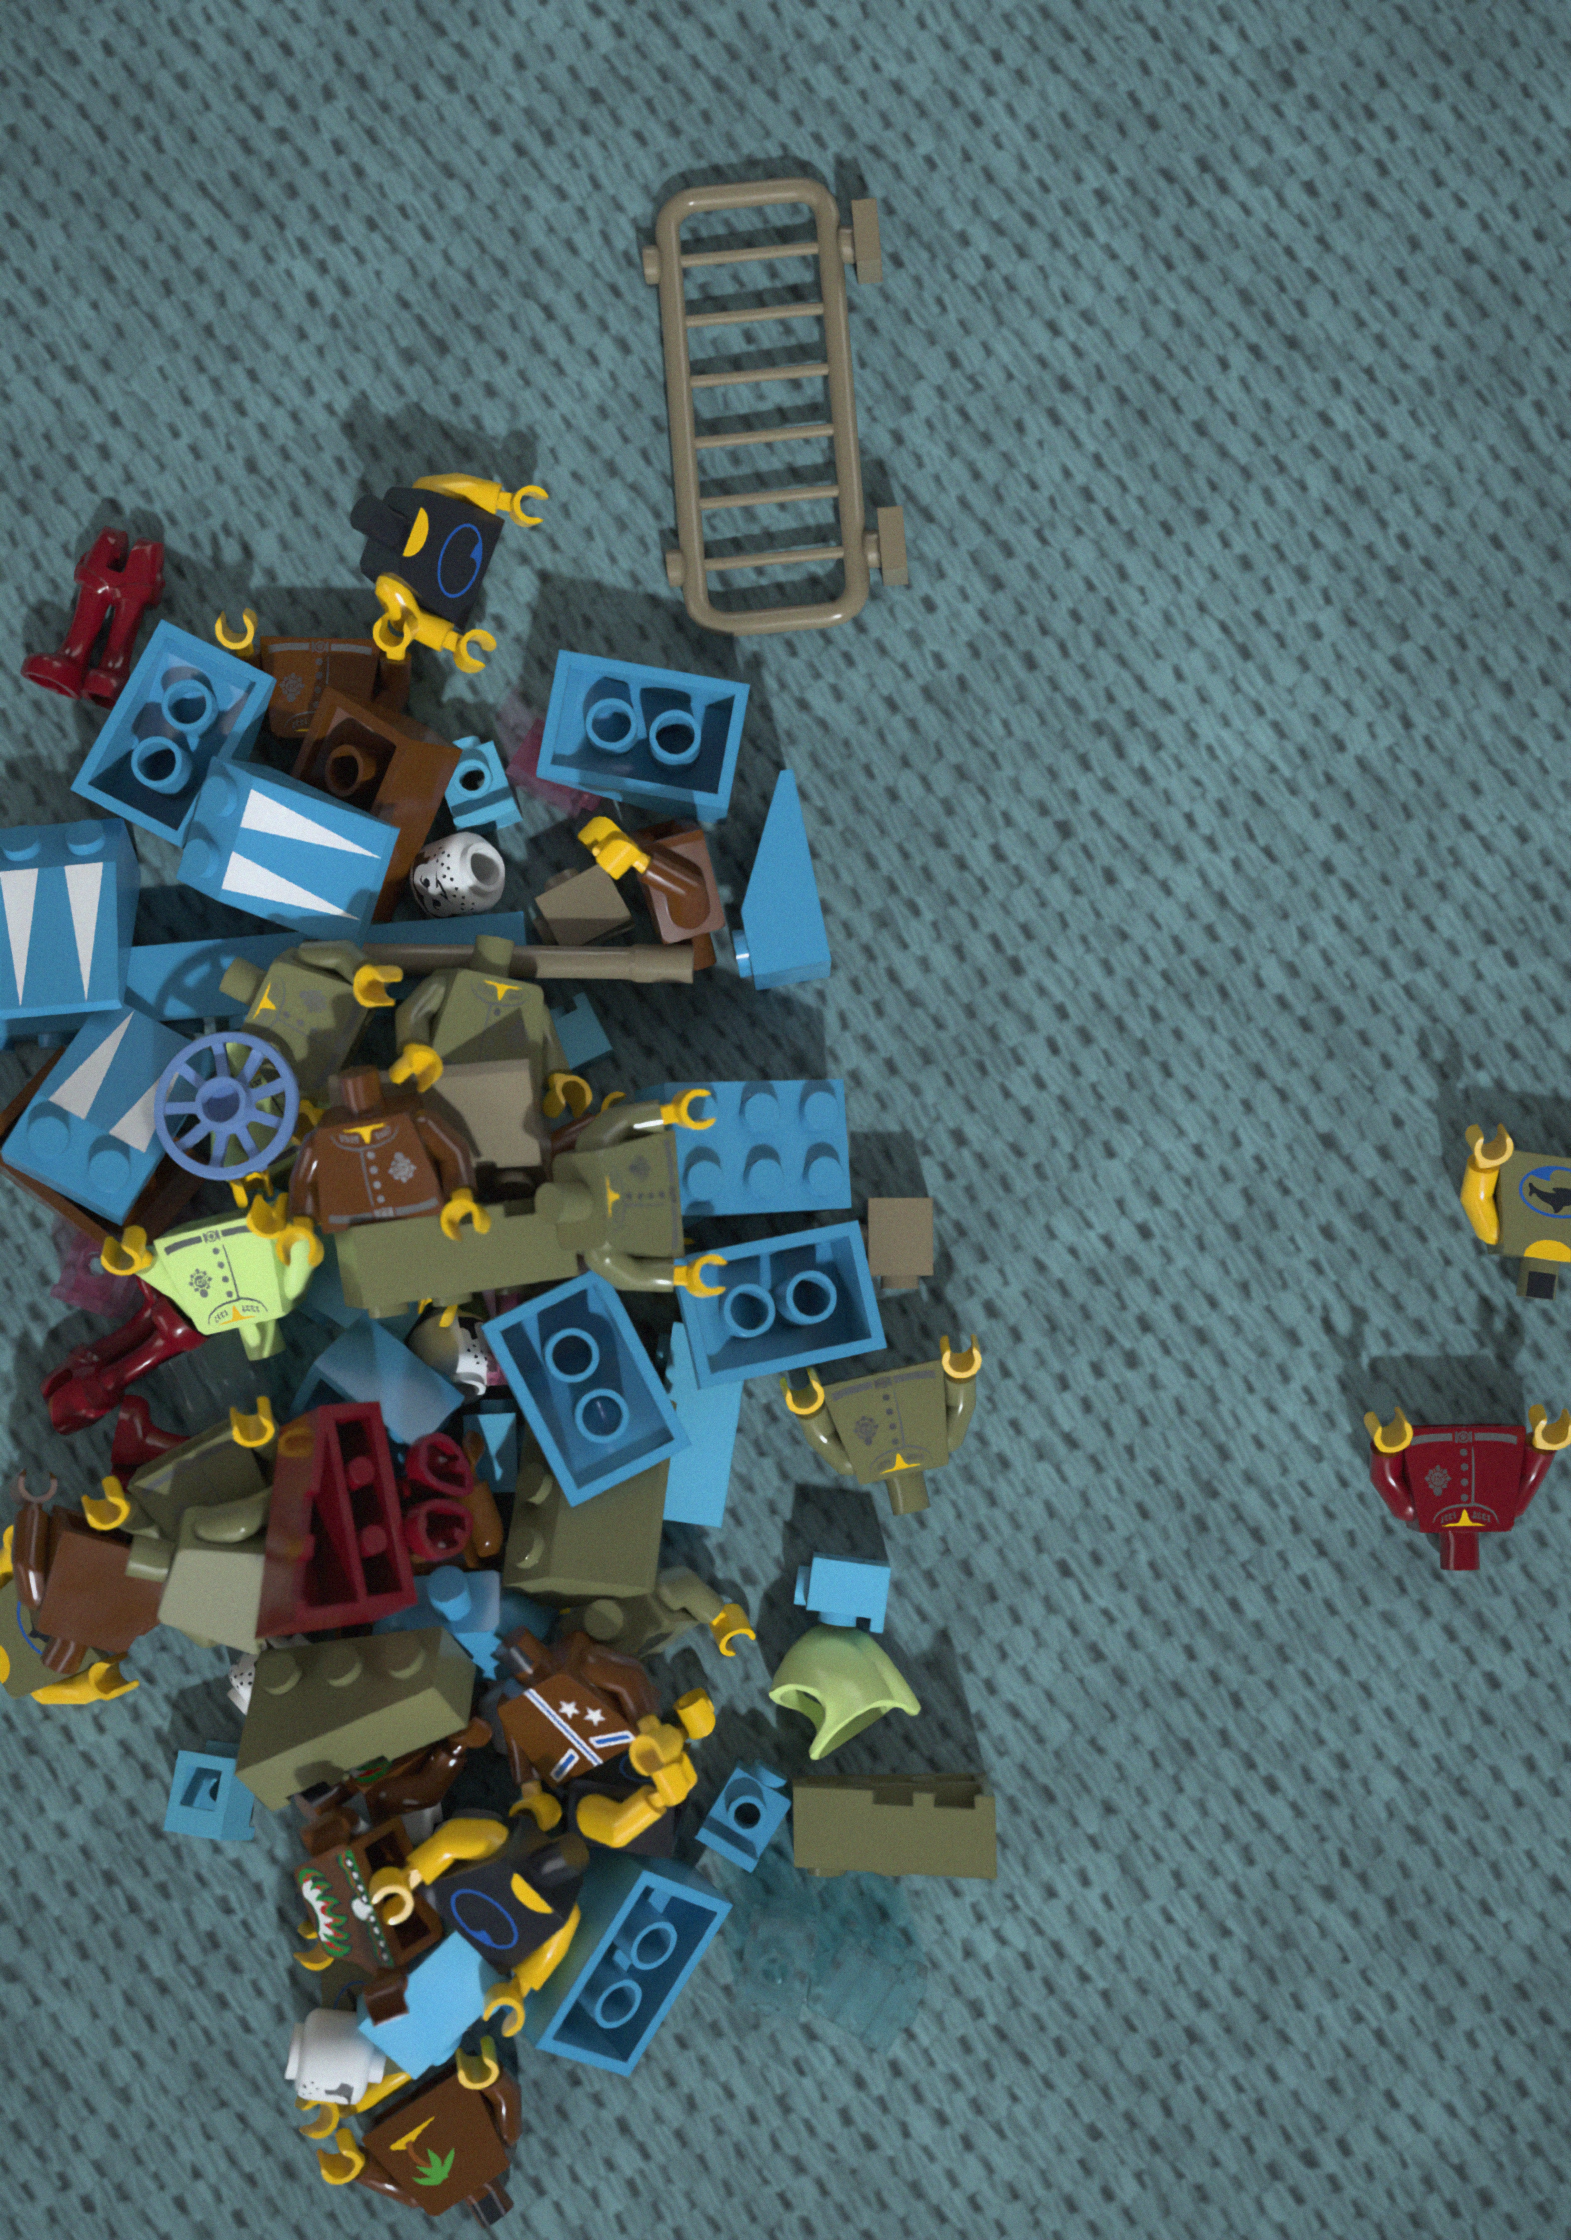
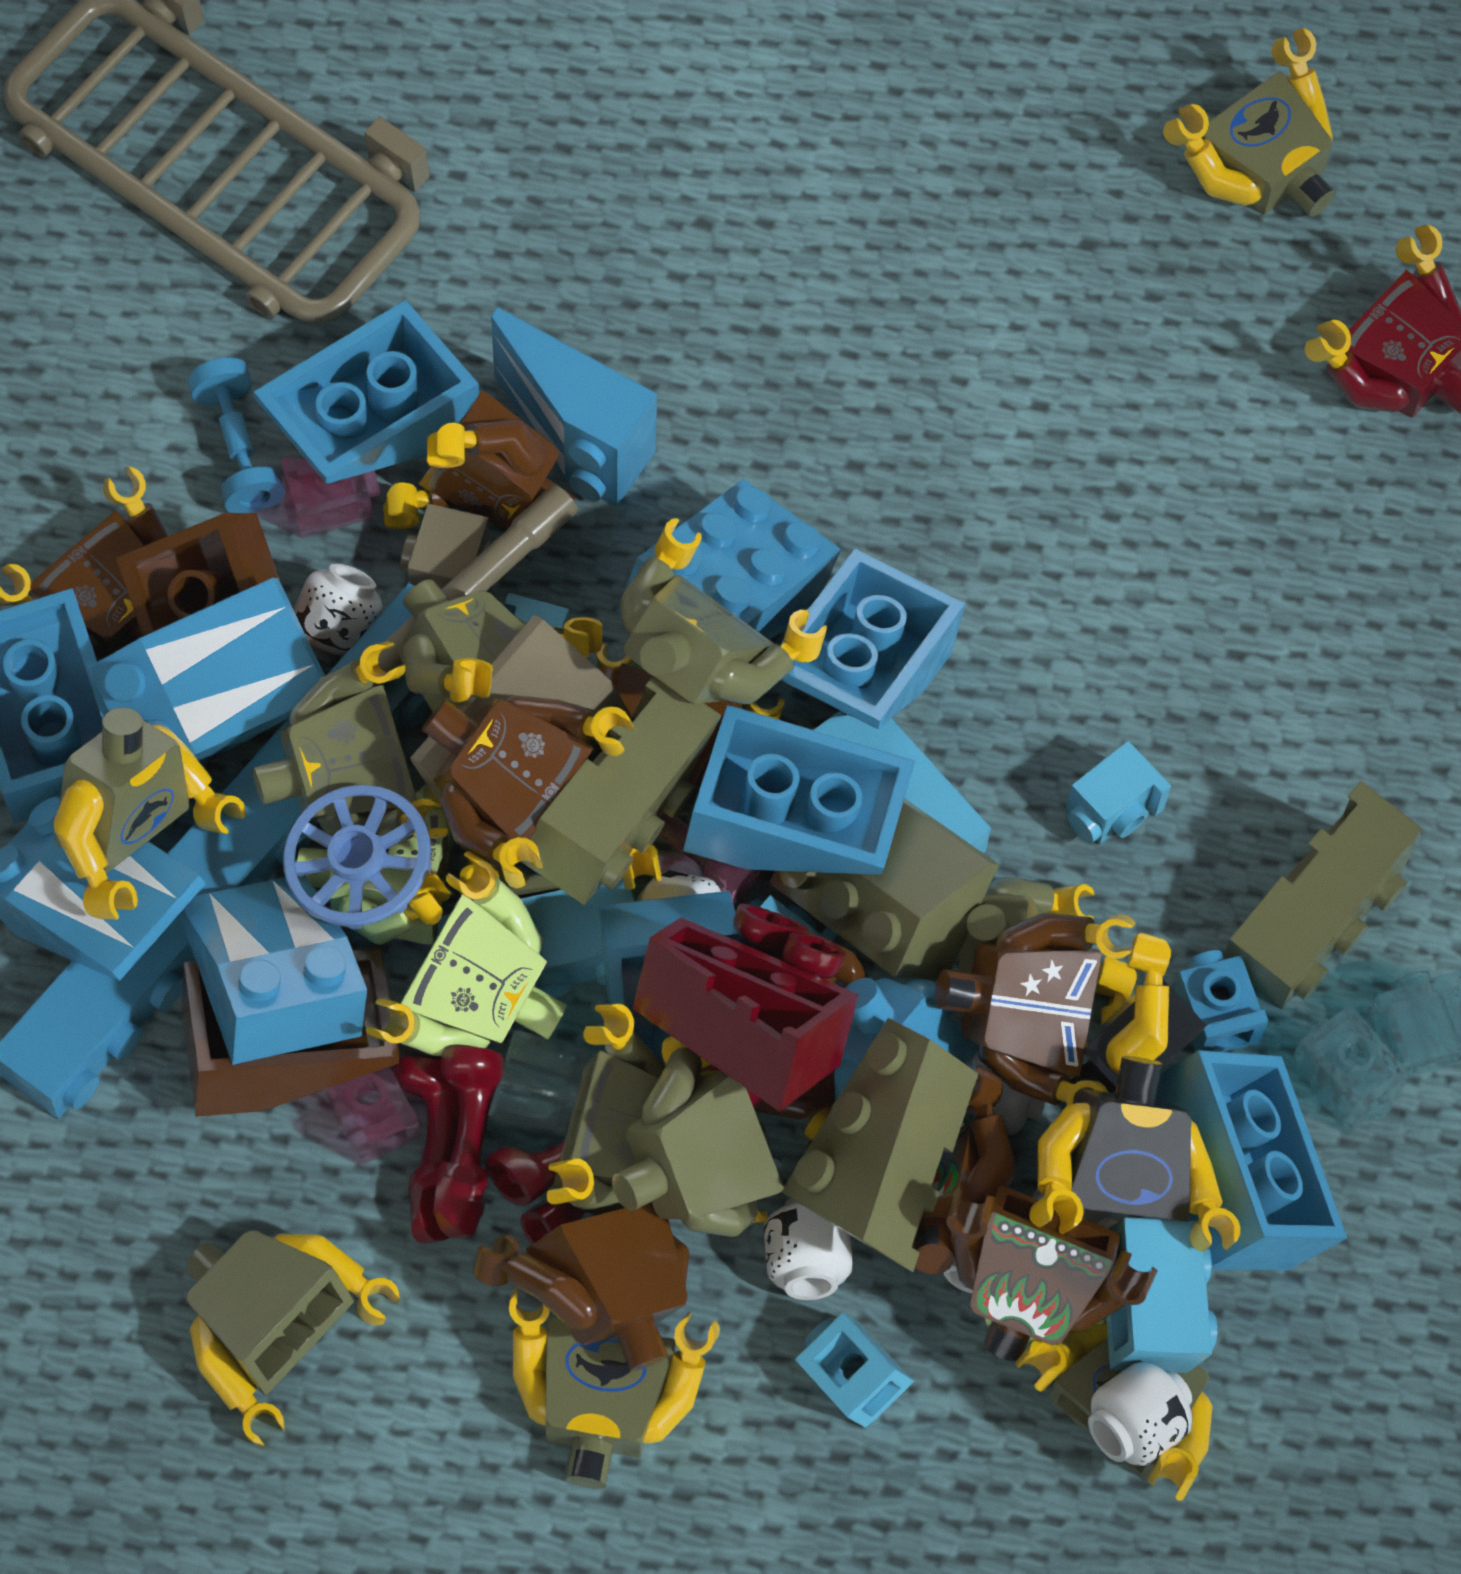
camera: 55 degrees left, 20 degrees down
(116, 888) = (122, 795): none -> torso
(432, 553) = (91, 428): torso -> none
(440, 2141) = (1278, 1420): reddish brown torso -> none
(493, 803) = (305, 548): medium azure brick -> none
(571, 605) = (251, 487): none -> dark azure wheel
(847, 1677) = (1194, 843): yellowish green piece -> none
(891, 1421) = (1020, 660): olive torso -> none
(899, 1240) = (896, 540): dark tan brick -> none

